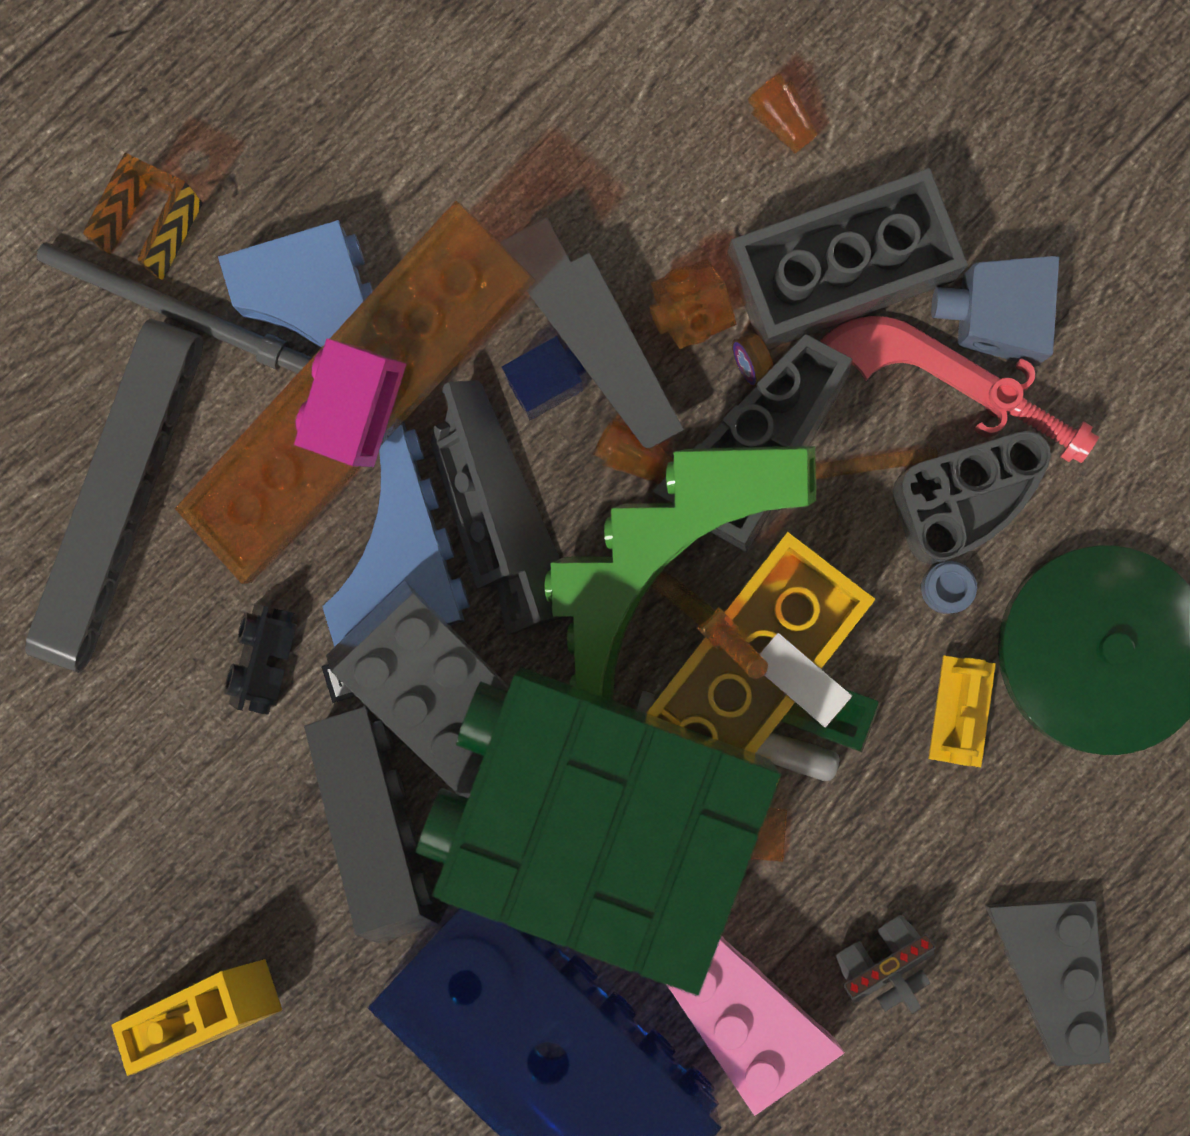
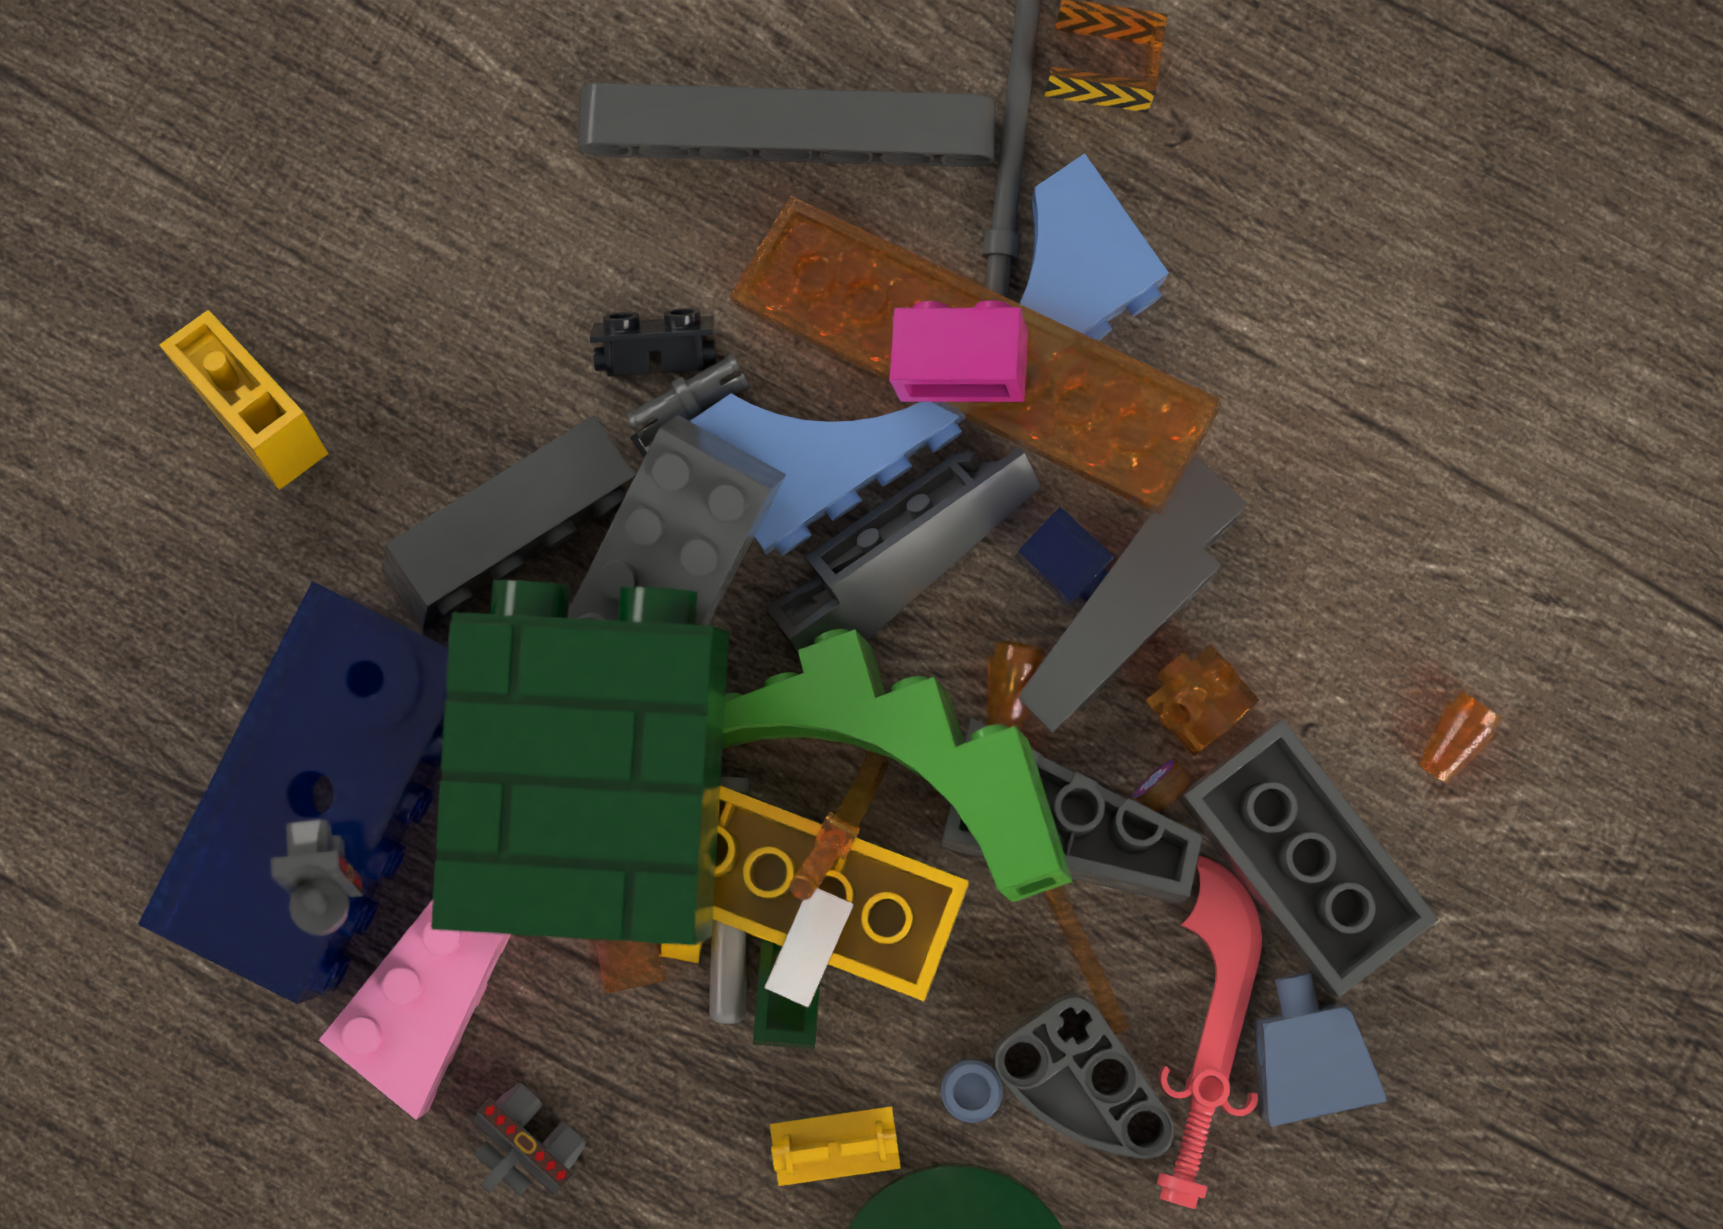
camera: 70 degrees right, 0 degrees up
(315, 643) = (688, 397): none -> dark grey pin
(623, 1082) = (316, 877): none -> dark grey hips

